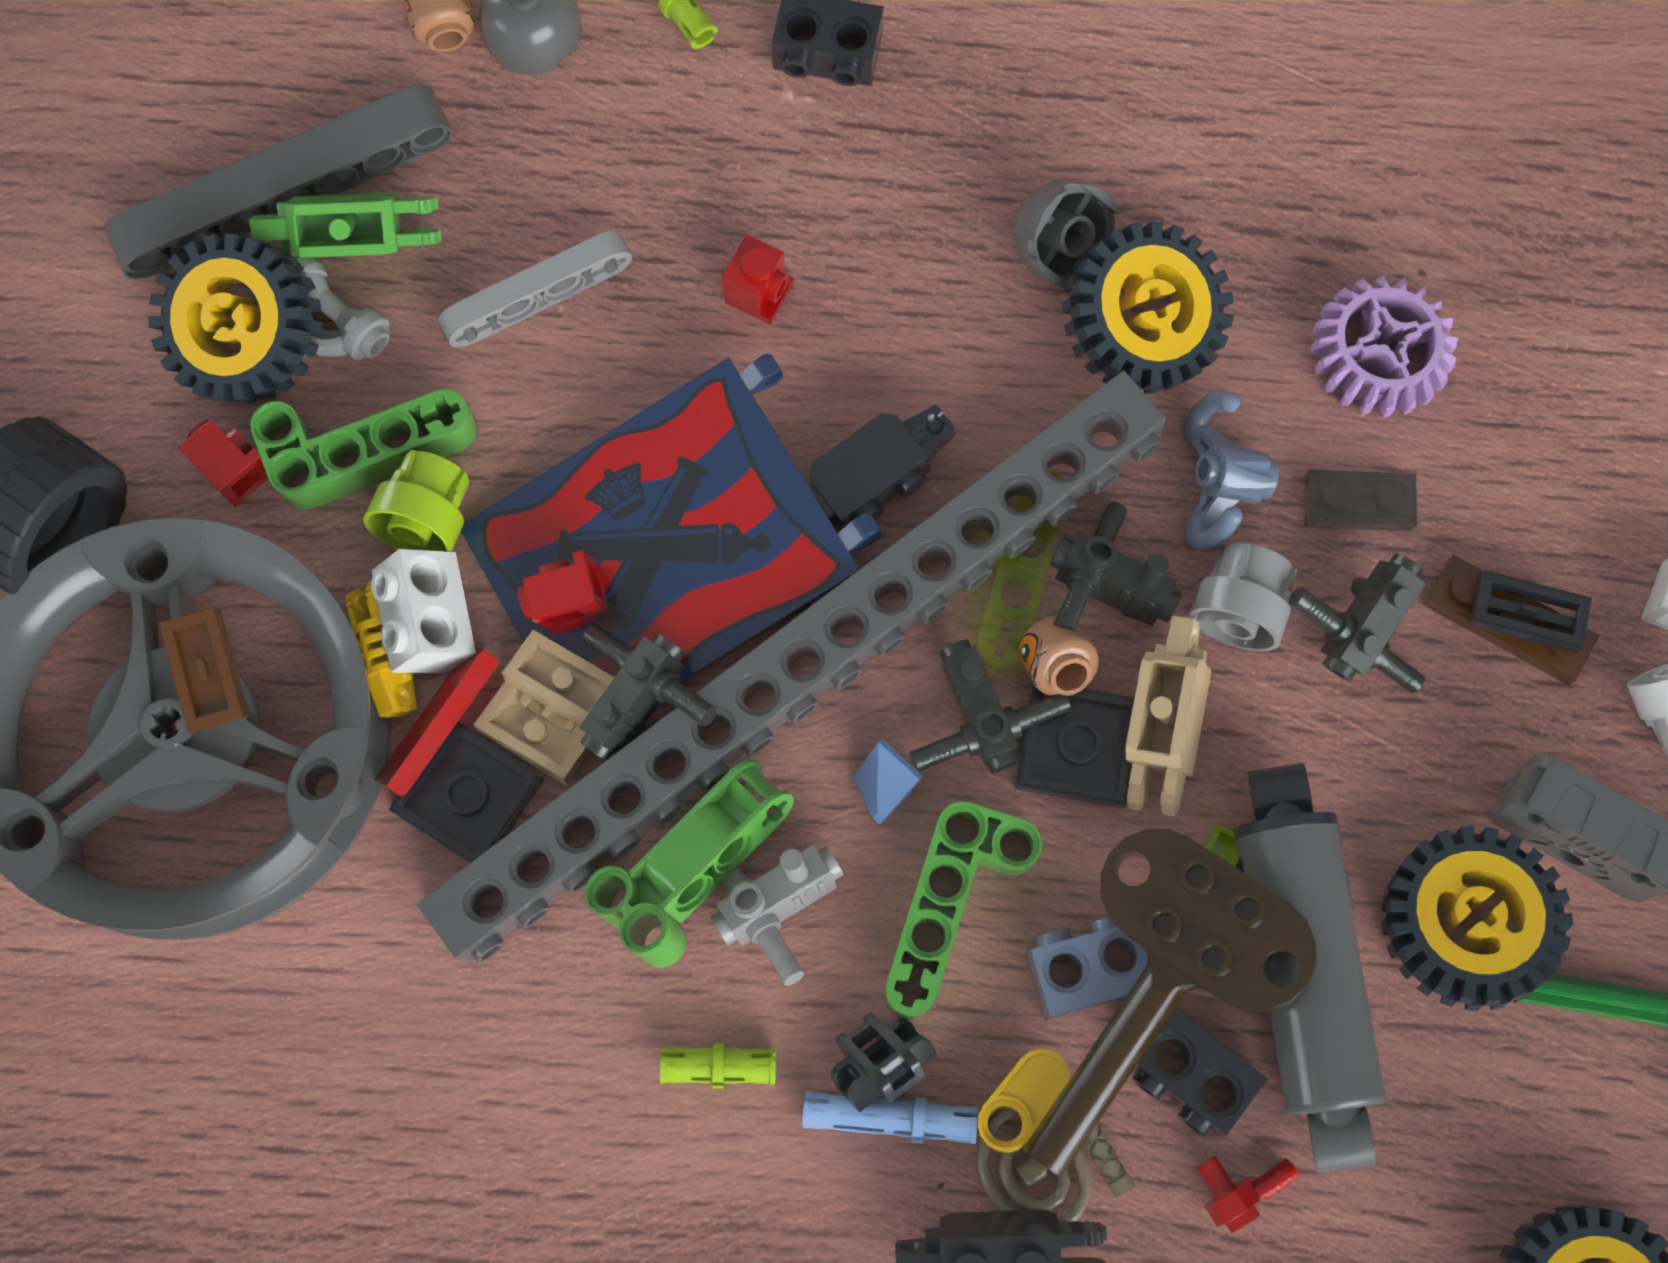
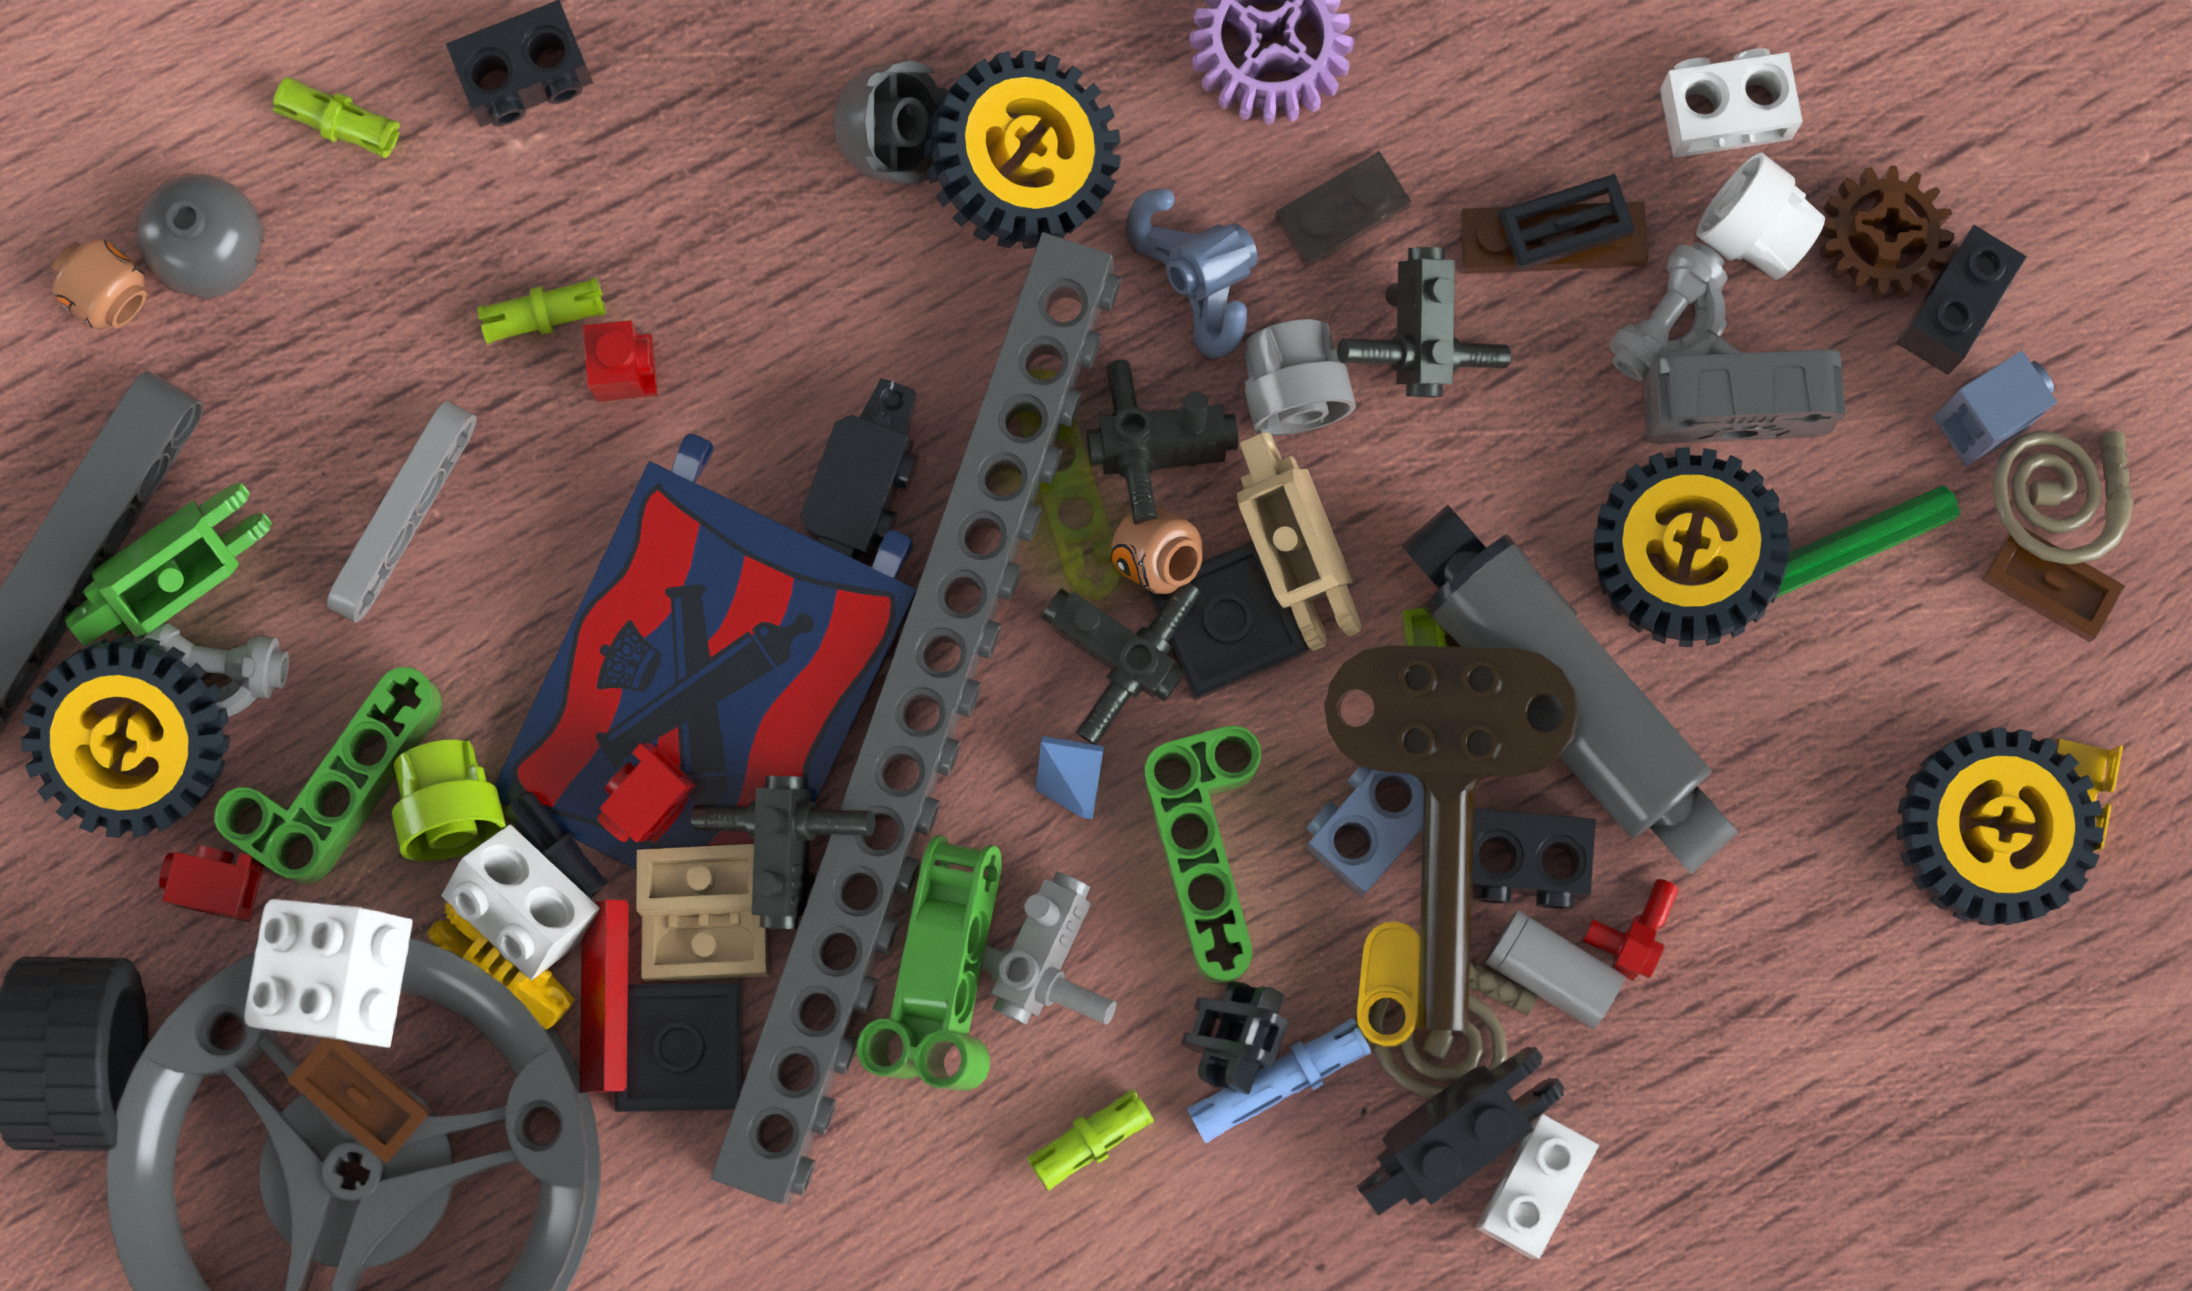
camera: 35 degrees left, 5 degrees up
(244, 566) = (328, 971): none -> white bracket
(479, 589) = (549, 839): none -> black axle
(728, 214) = (541, 310): none -> lime pin
(1161, 1176) = (1555, 969): none -> light grey pin
(1604, 715) = (1693, 278): none -> light grey piece

